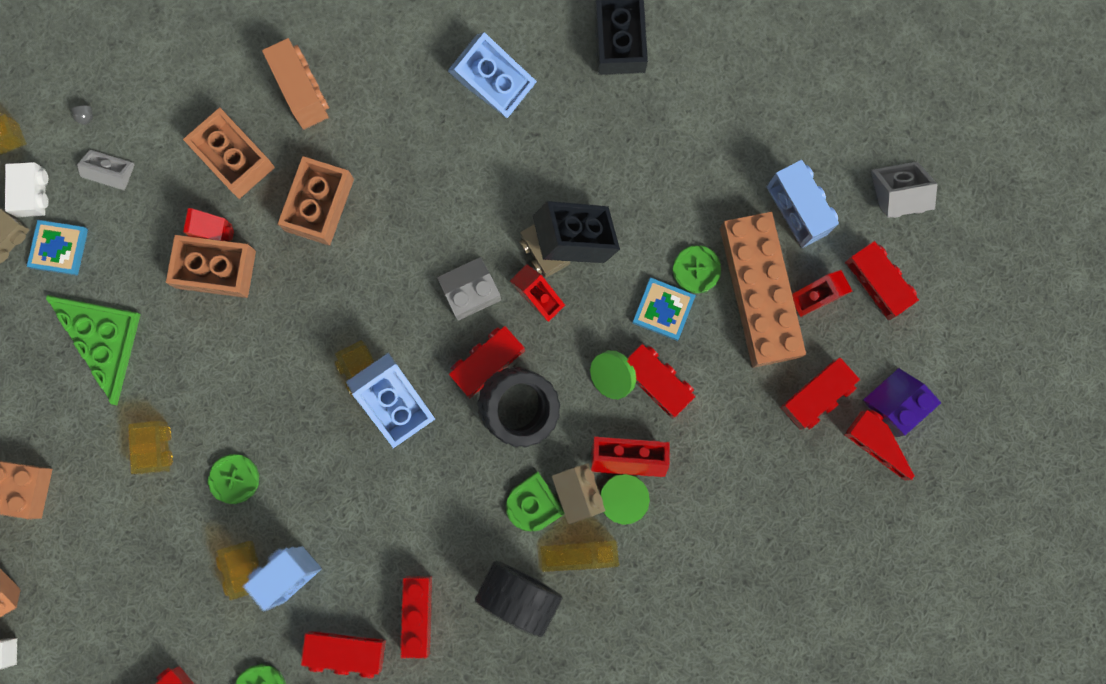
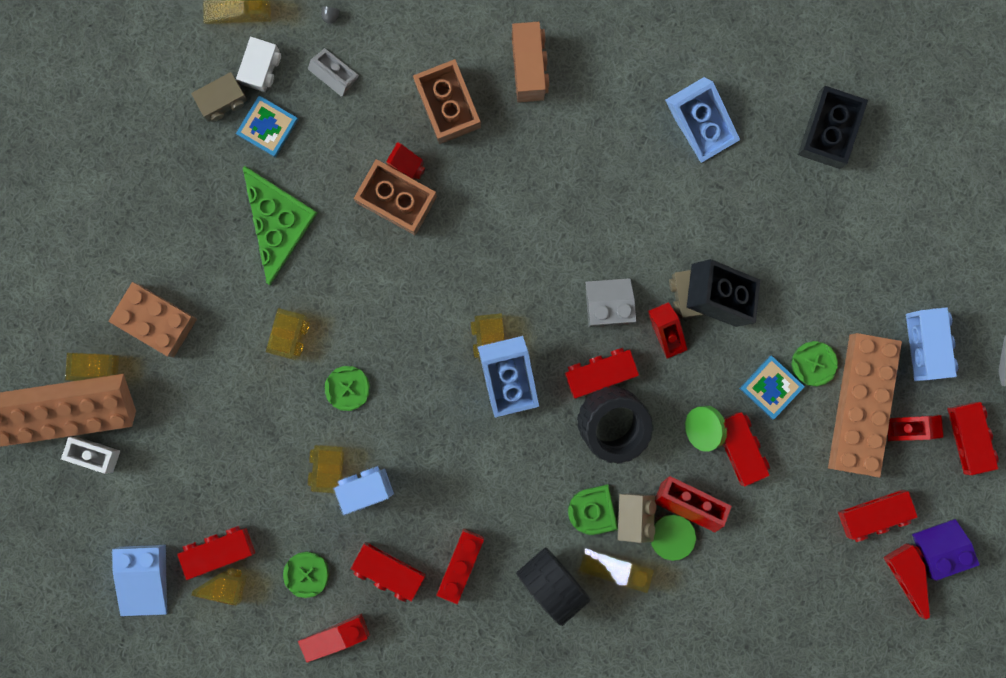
camera: 20 degrees right, 5 degrees up
(316, 200) = (507, 174): nougat brick -> none

